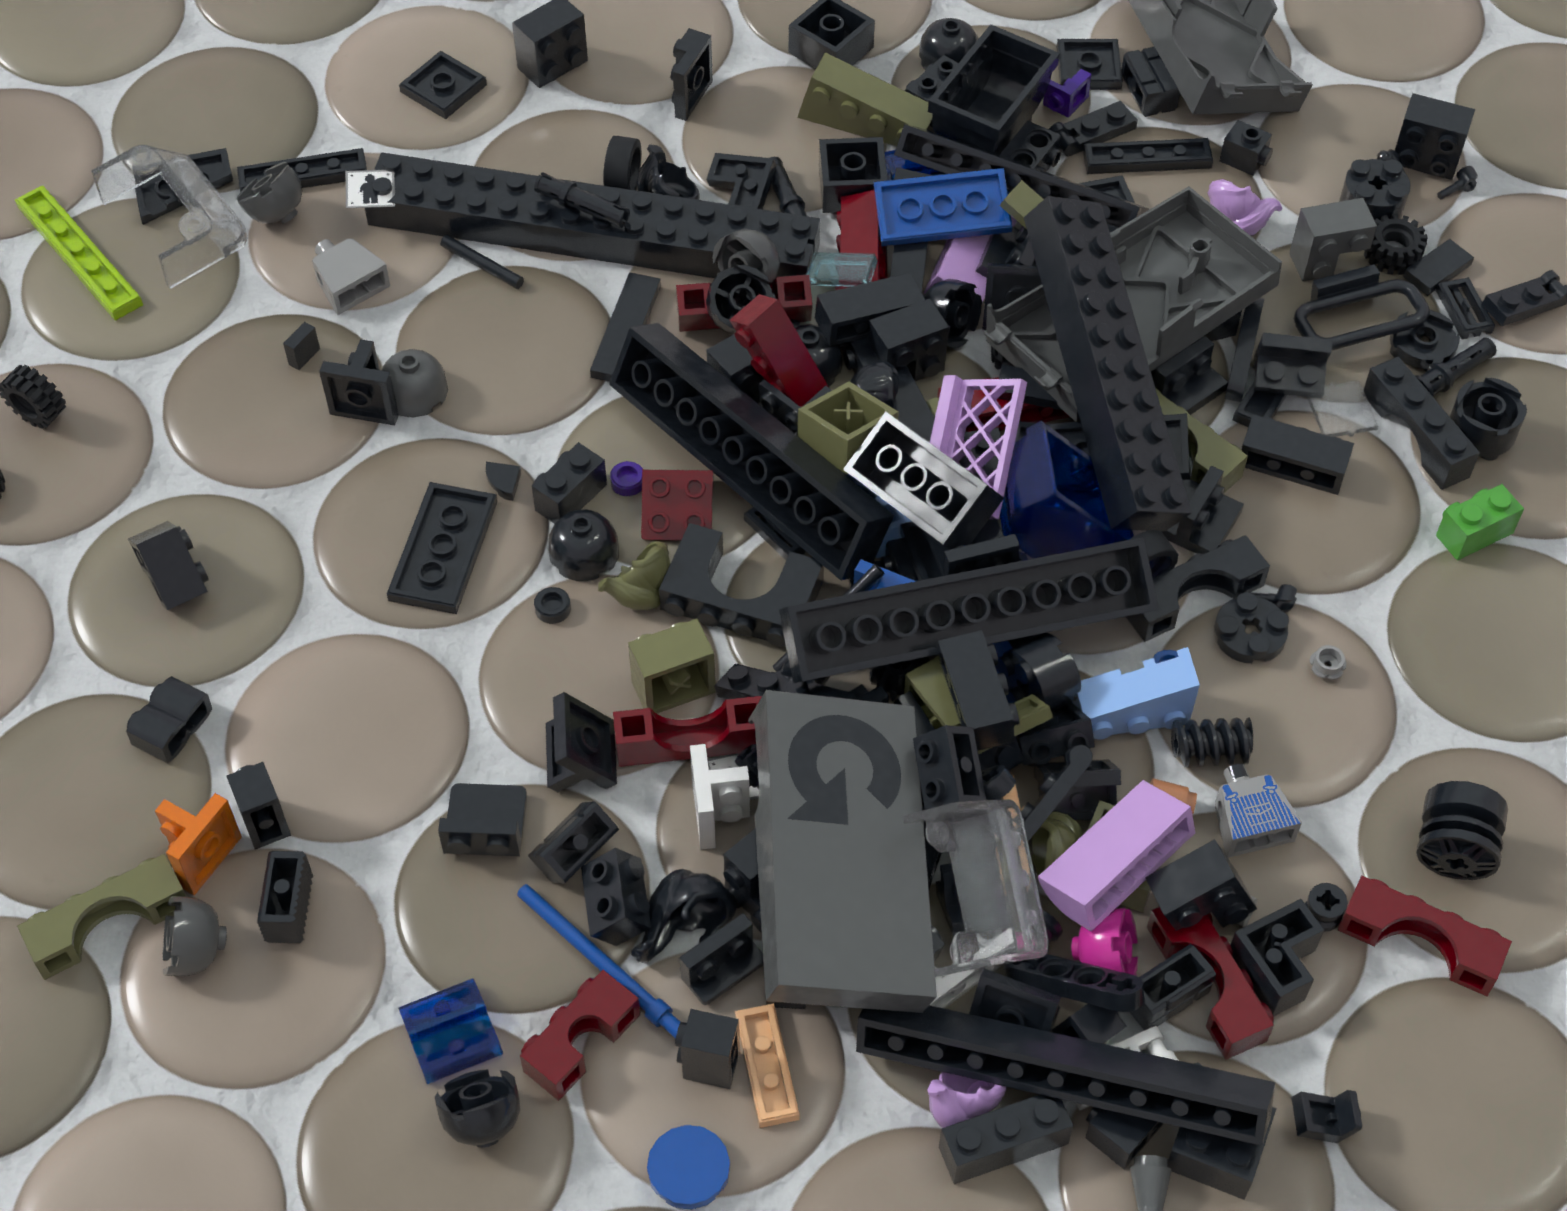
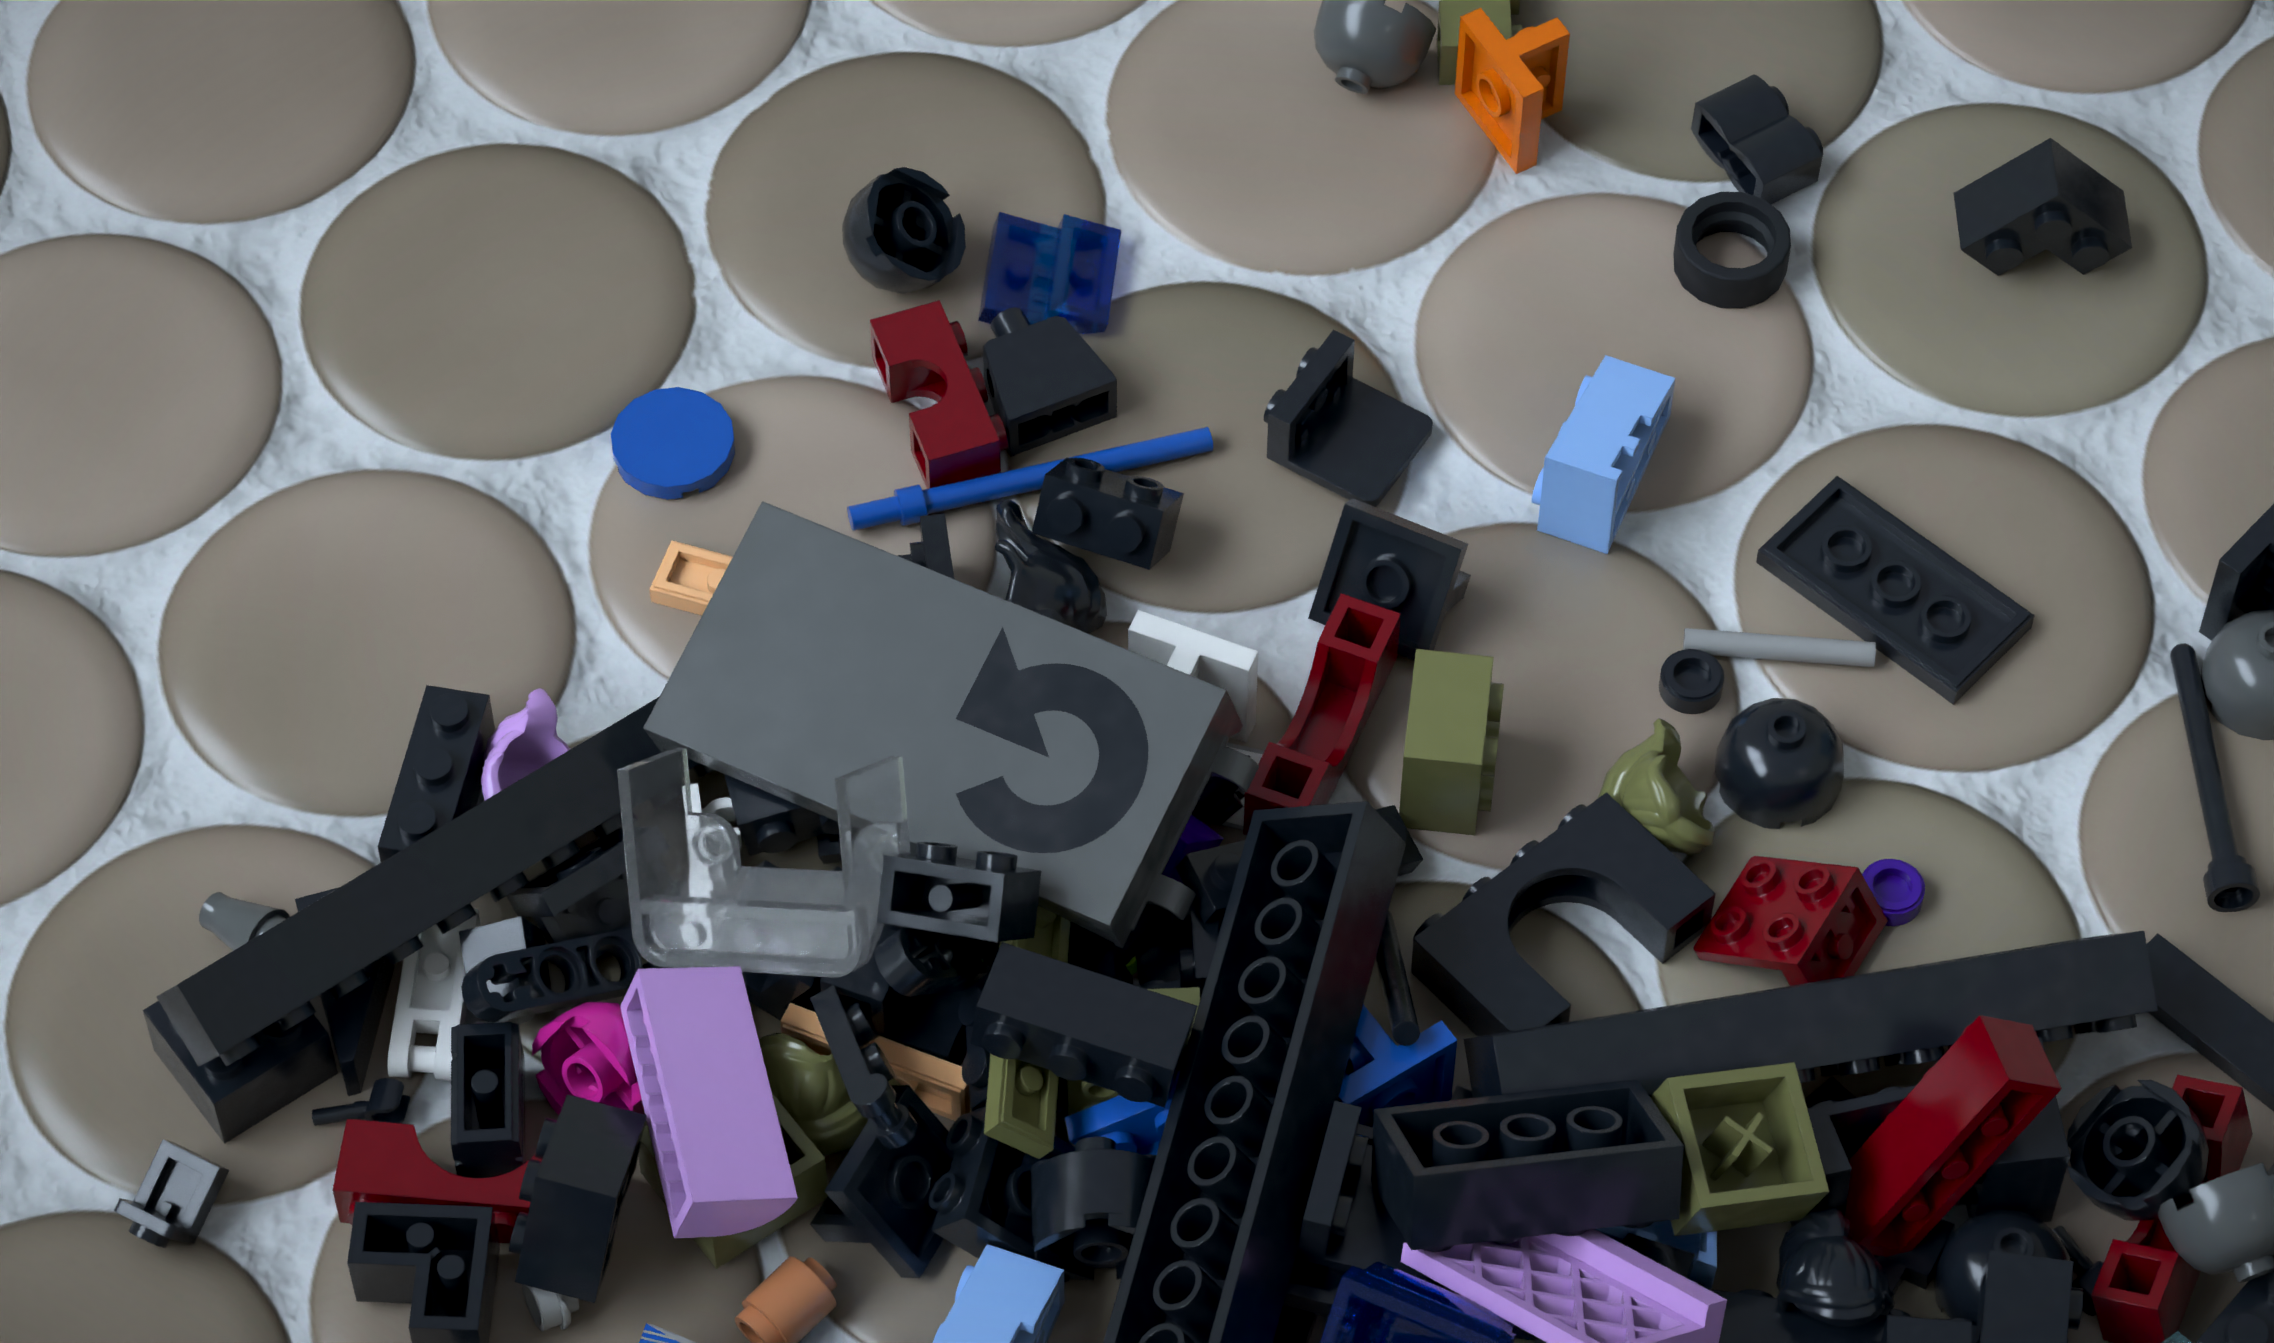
camera: 120 degrees right, 0 degrees up
(244, 679) = (1739, 214): none -> black tyre
(258, 805) = (1525, 168): black brick -> none
(285, 897) = (1361, 155): black brick -> none
(435, 690) = (1602, 453): none -> light blue wedge
(503, 478) = (1987, 719): black tile -> none
(509, 578) = (1781, 647): none -> light grey bar
(535, 985) = (1044, 380): none -> black torso
(541, 356) = (2230, 880): none -> black piece
(569, 483) = (1909, 784): black brick -> none
(573, 842) = (1228, 501): black brick -> none
(708, 1048) = (800, 479): black brick -> none
(1196, 1051) = (384, 1105): none -> black hand

